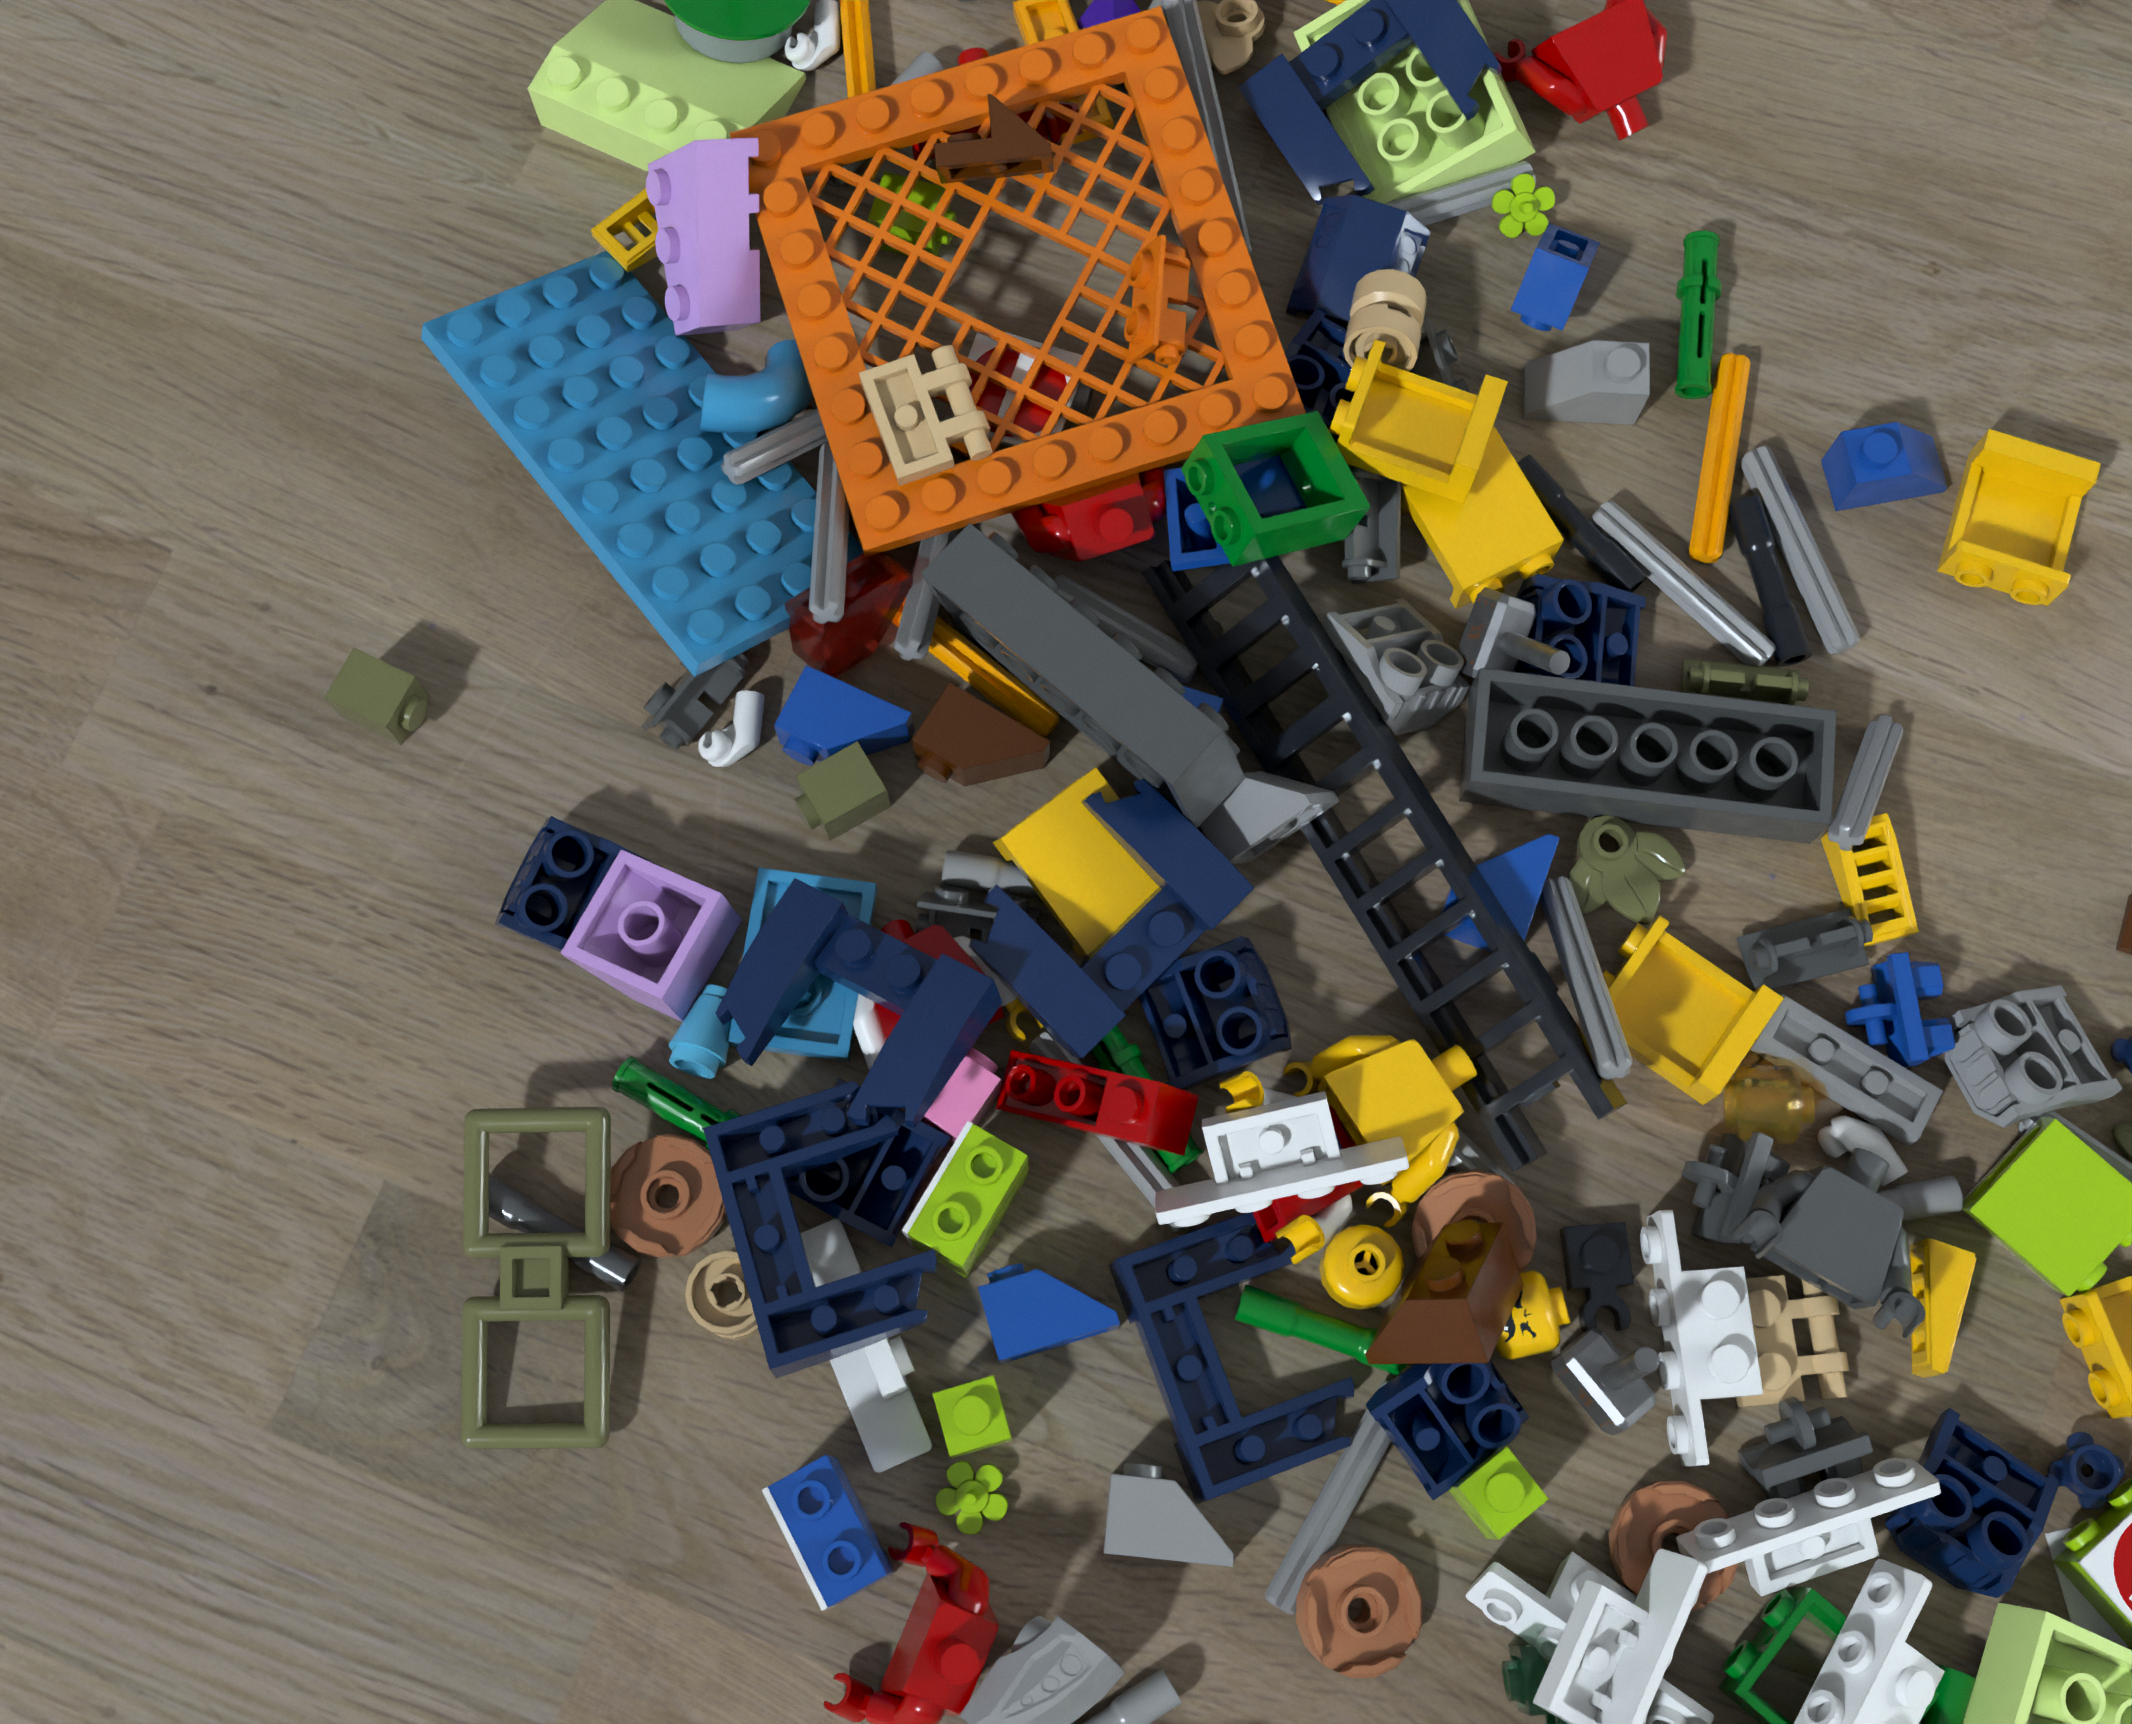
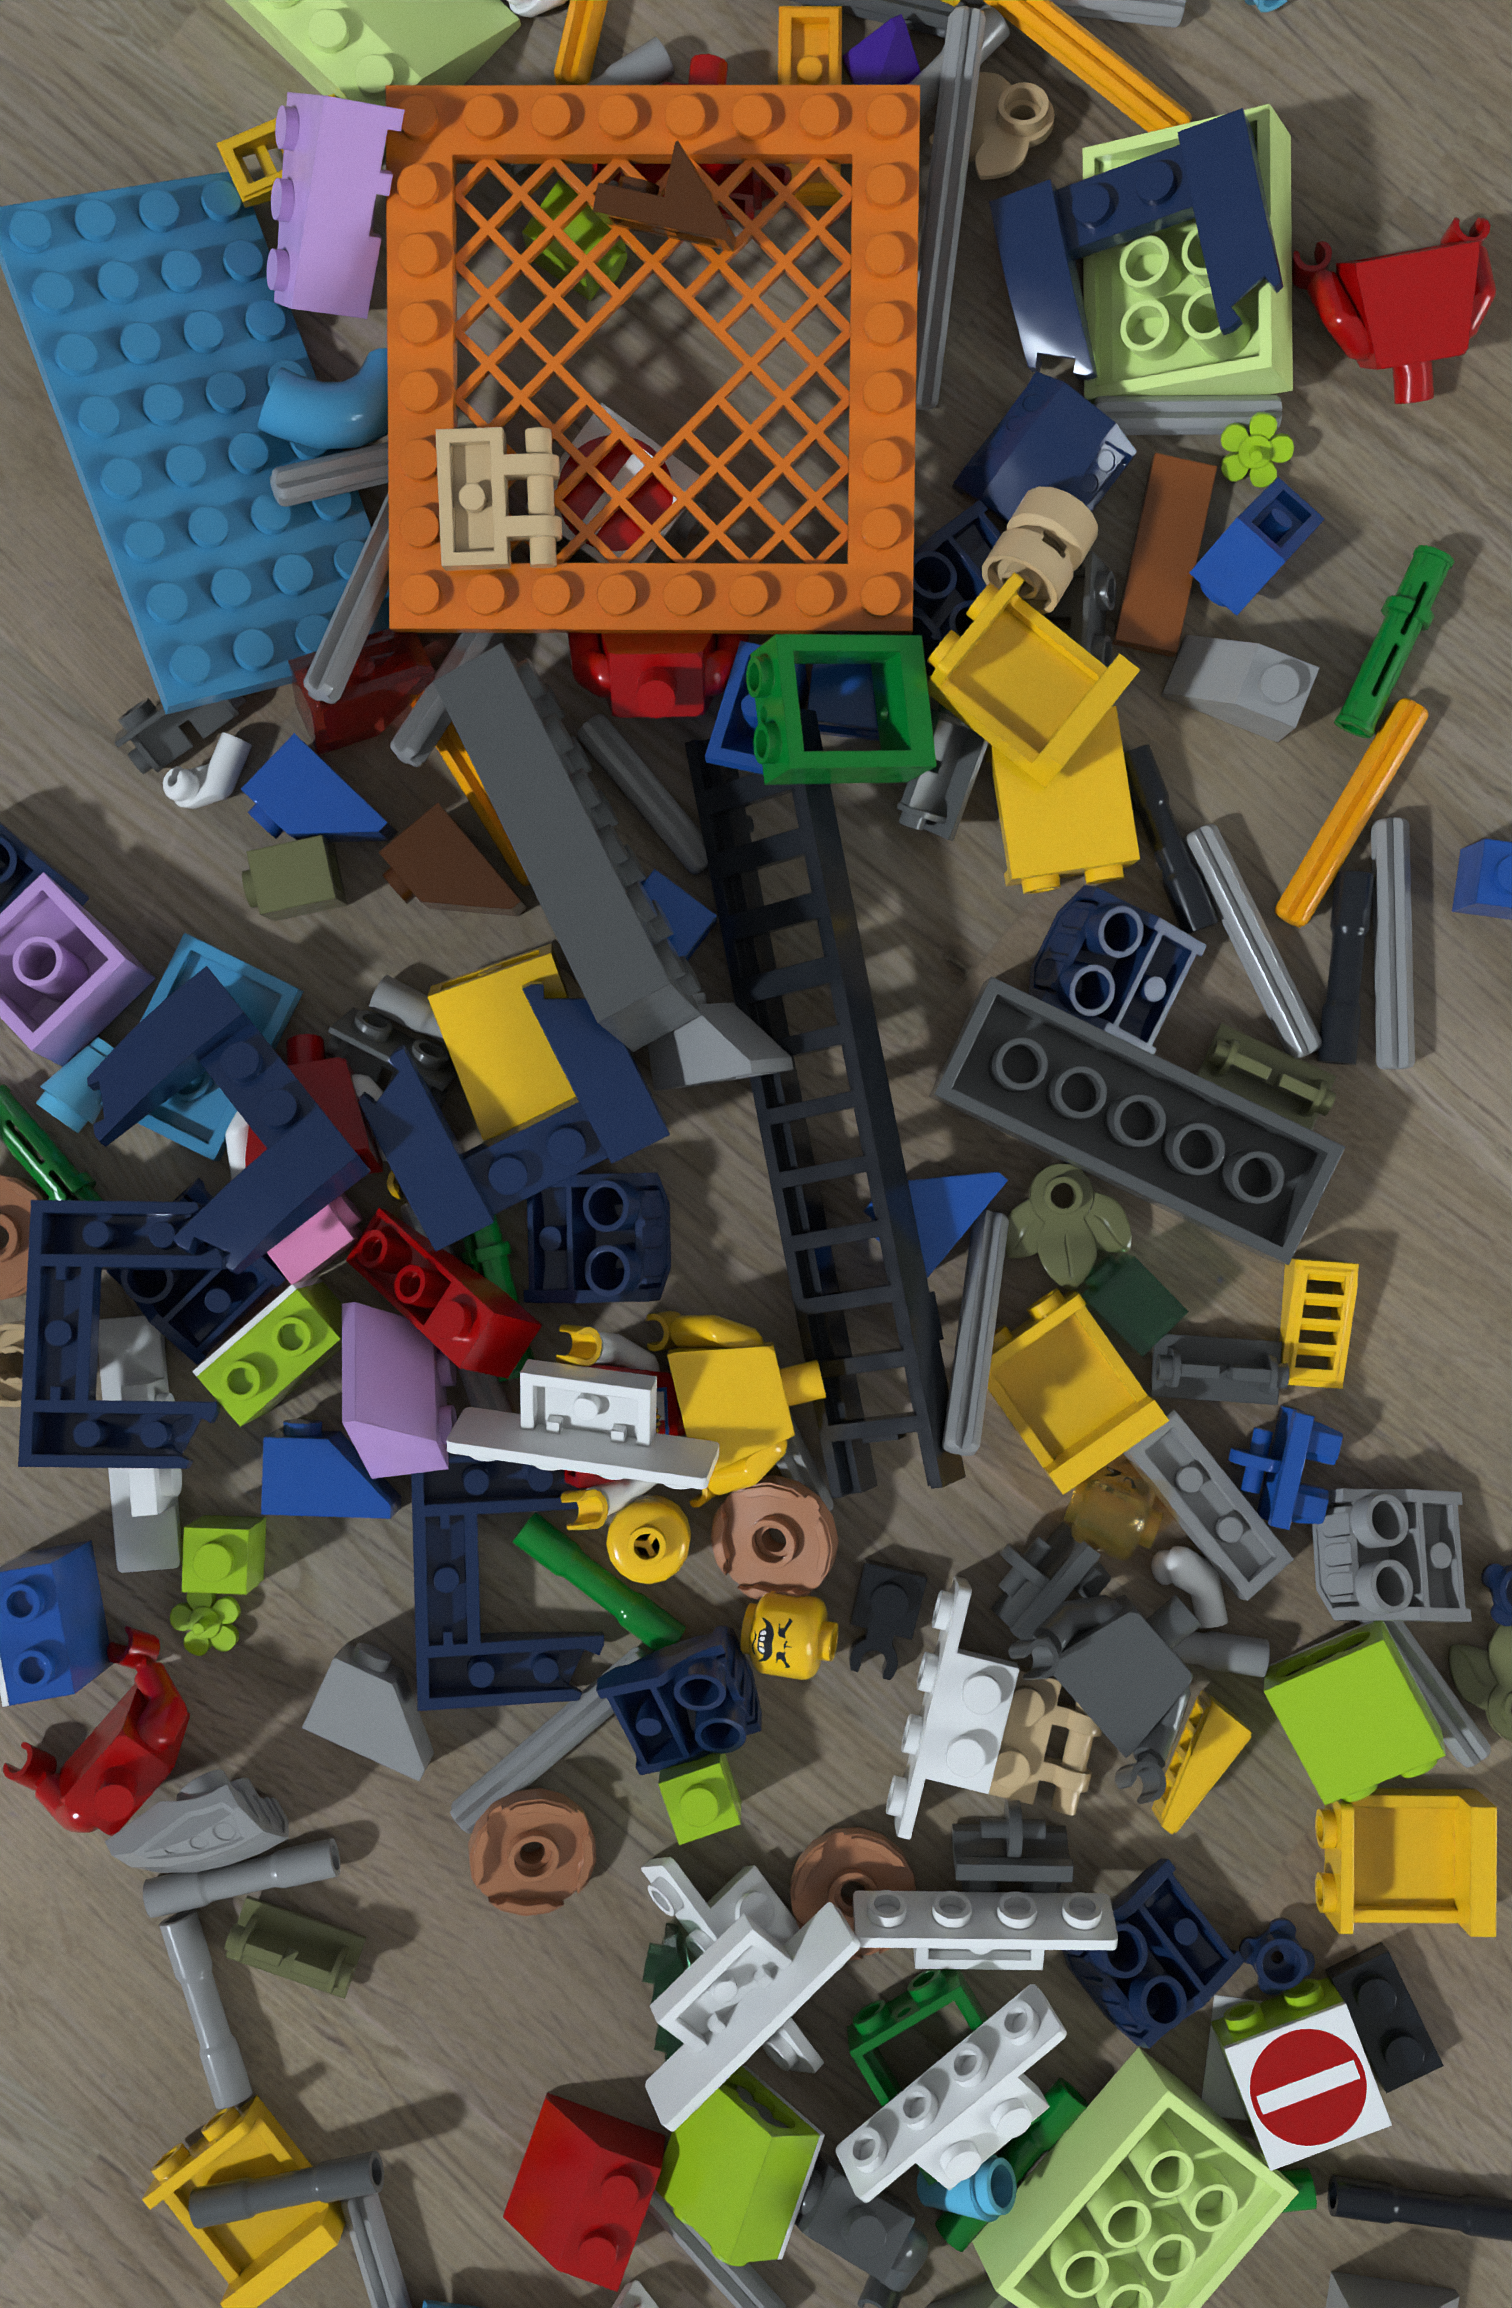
camera: 20 degrees right, 15 degrees up
(1091, 1202) = (394, 1393): none -> lavender slope
(1157, 278) = (798, 426): orange hinge -> none
(1400, 664) = (916, 933): light grey slope -> none
(1452, 1299) = (714, 1613): reddish brown slope -> none
(1482, 306) = (1164, 554): none -> dark orange tile
(1499, 637) = (1028, 942): flat silver piece -> none
(1606, 1381) = (844, 1723): flat silver piece -> none
(1707, 913) = (1132, 1302): none -> clear green brick
(1865, 783) = (1349, 1225): light grey axle -> none

